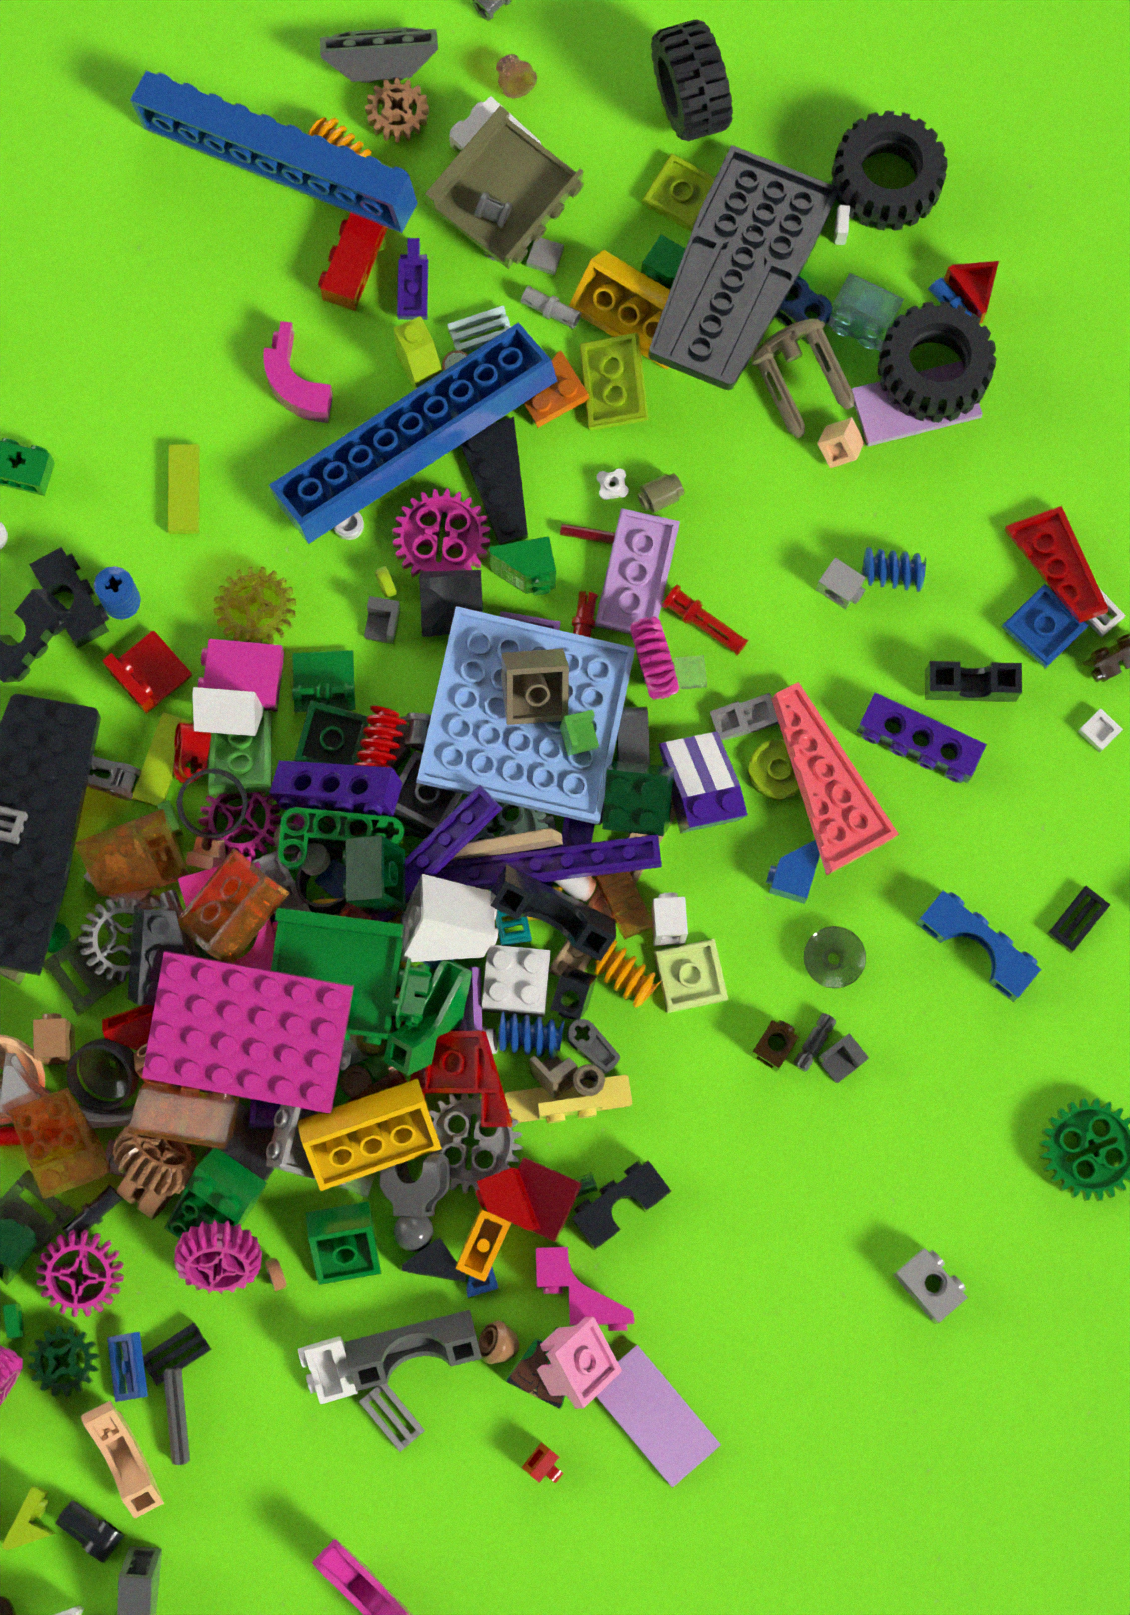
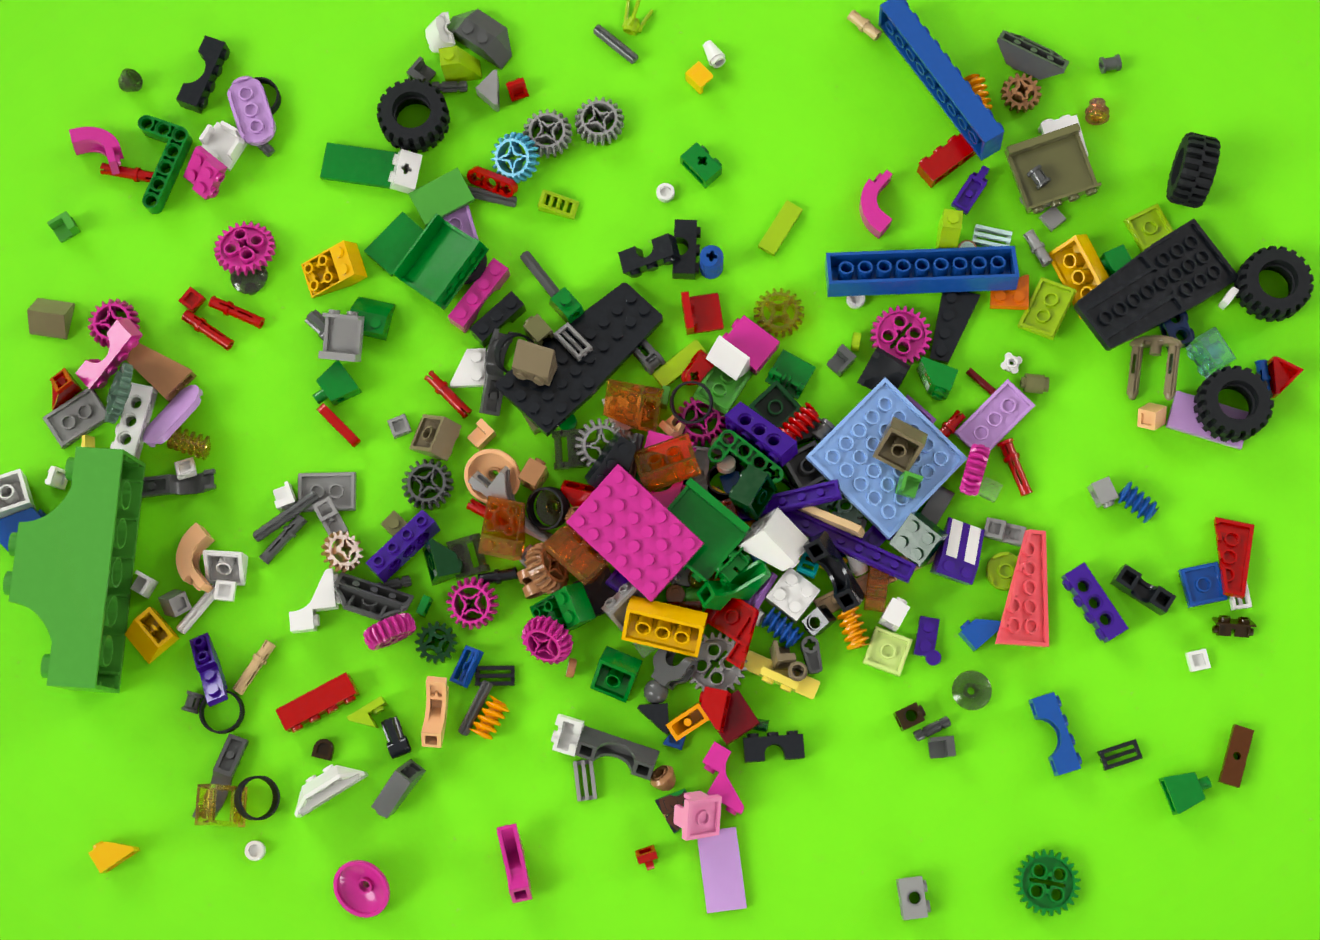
camera: 40 degrees right, 0 degrees up
(125, 140) = (864, 25): none -> tan pin
(206, 1417) = (490, 718): none -> light orange piece
(733, 928) = (926, 640): none -> dark purple hinge

